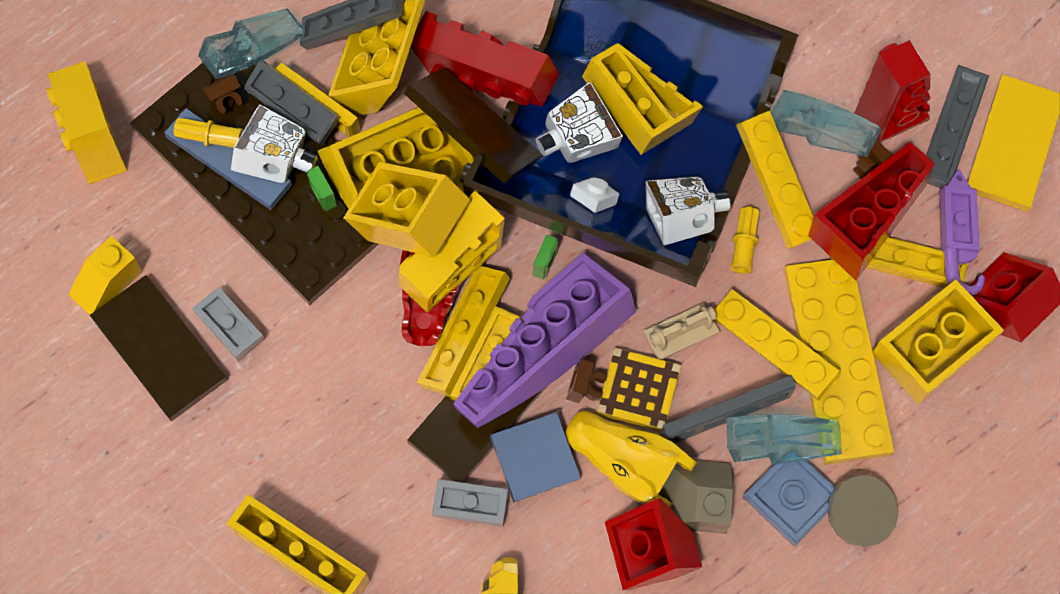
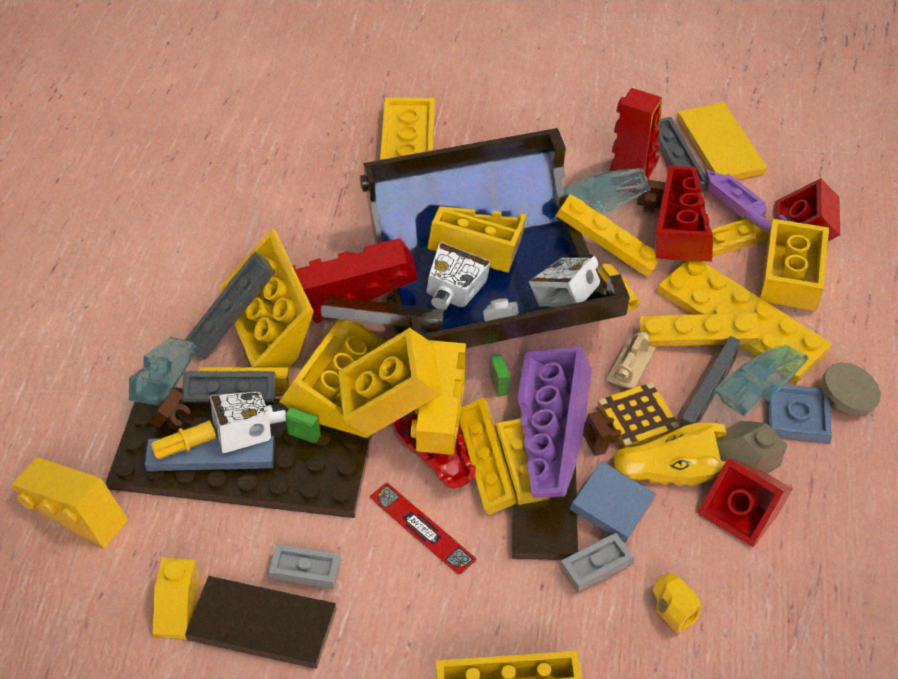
camera: 35 degrees left, 20 degrees down
(357, 358) = (423, 528): none -> sticker

